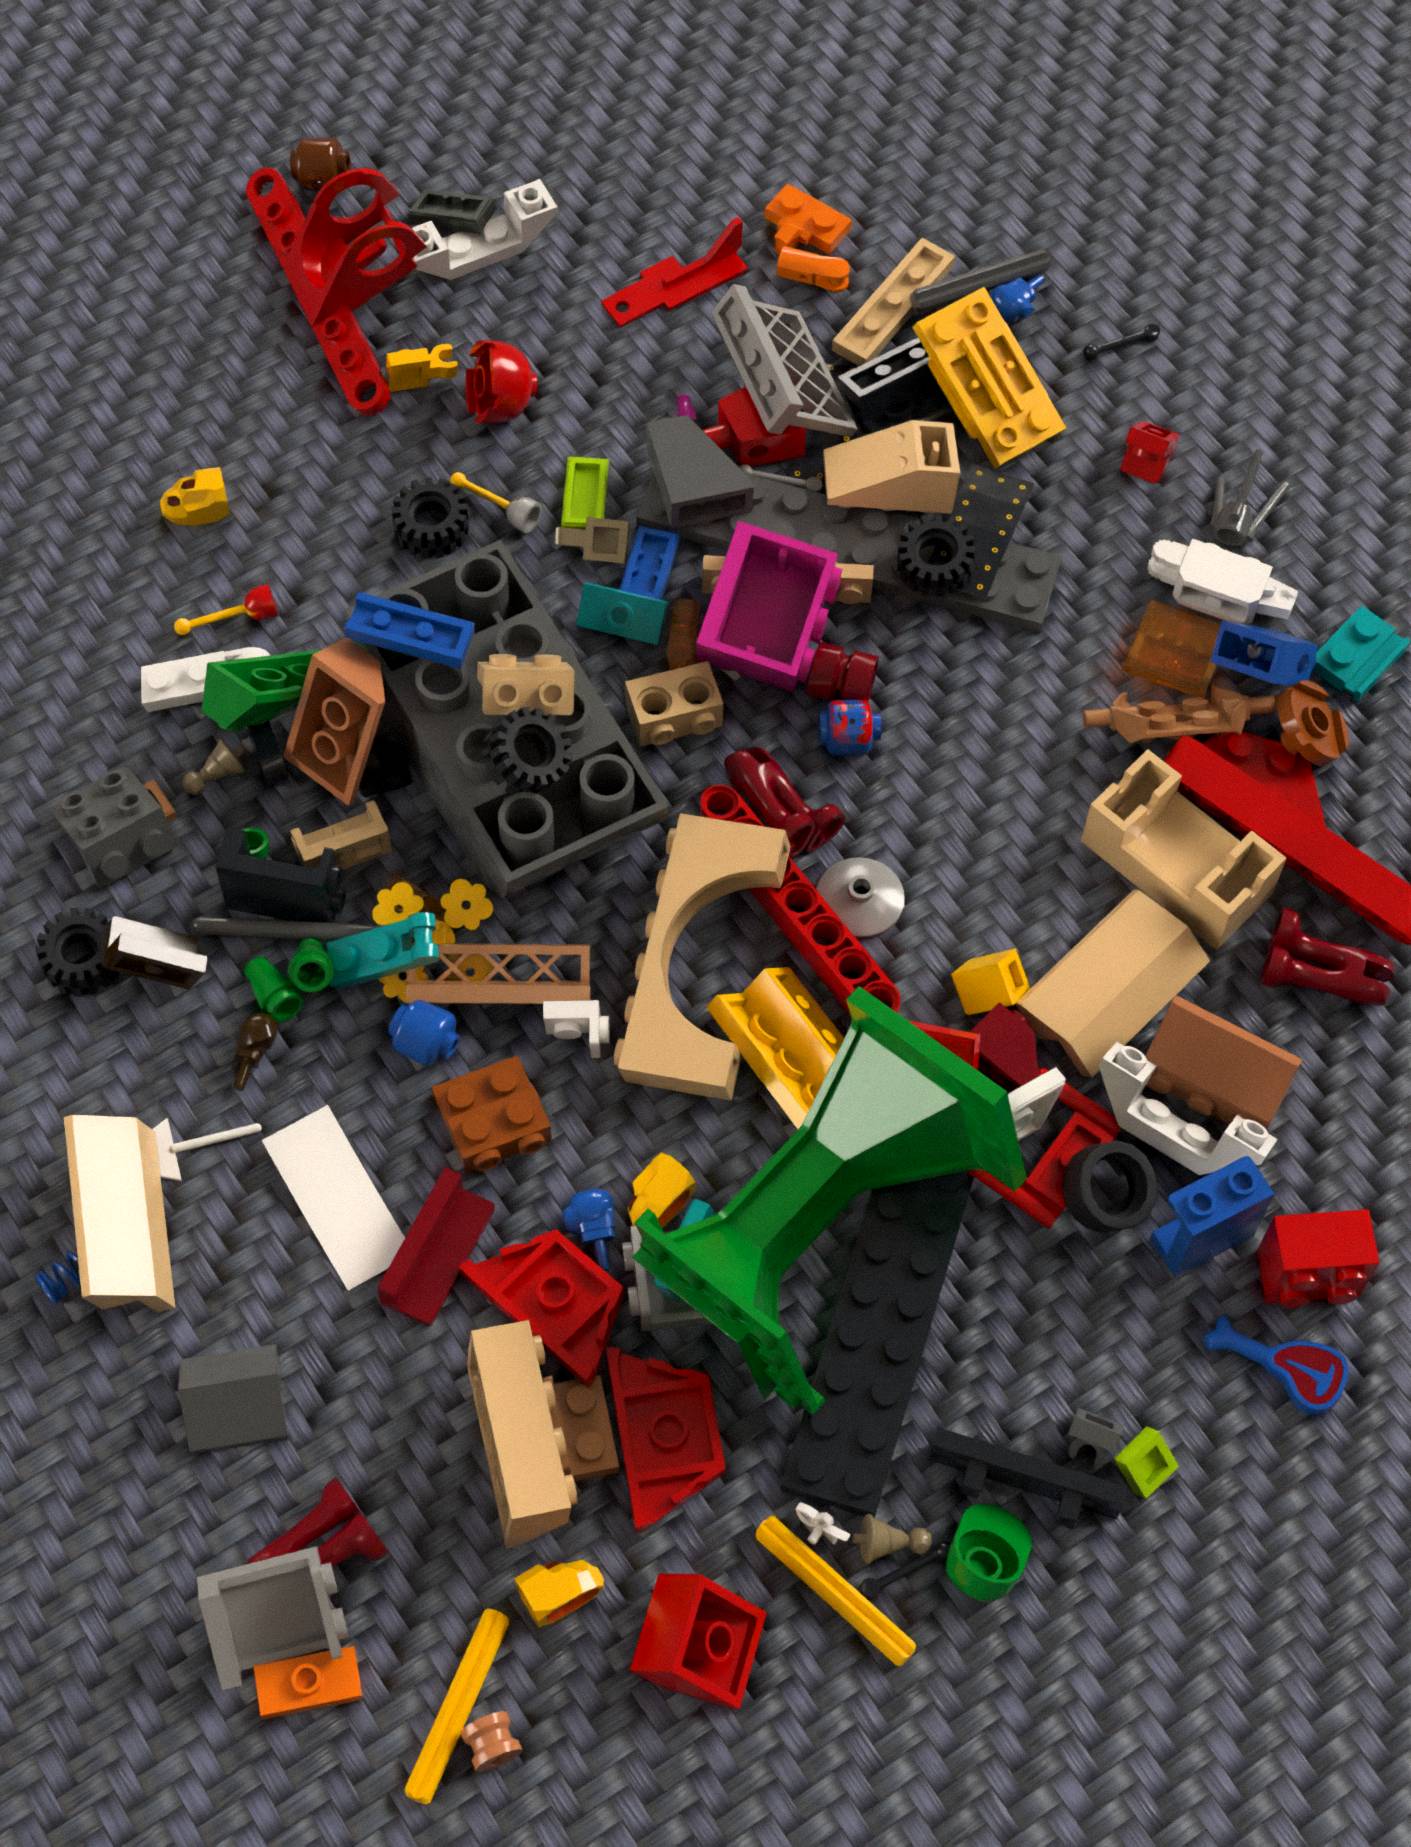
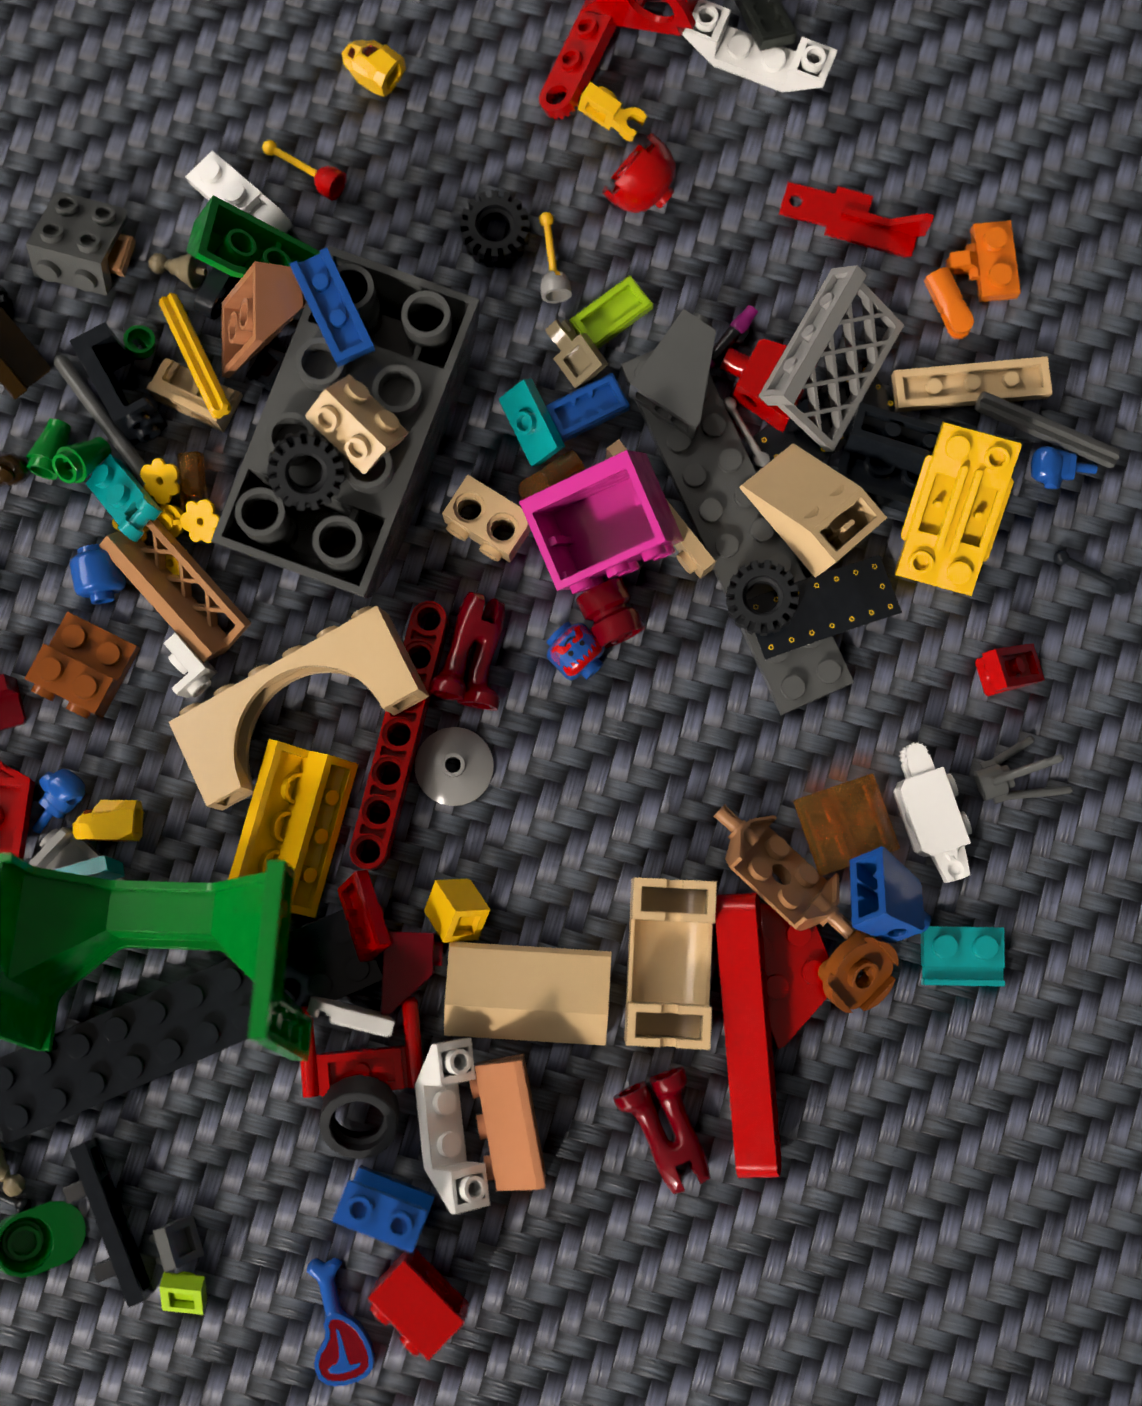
camera: 50 degrees right, 20 degrees up
(311, 807) = (195, 356): none -> yellow axle

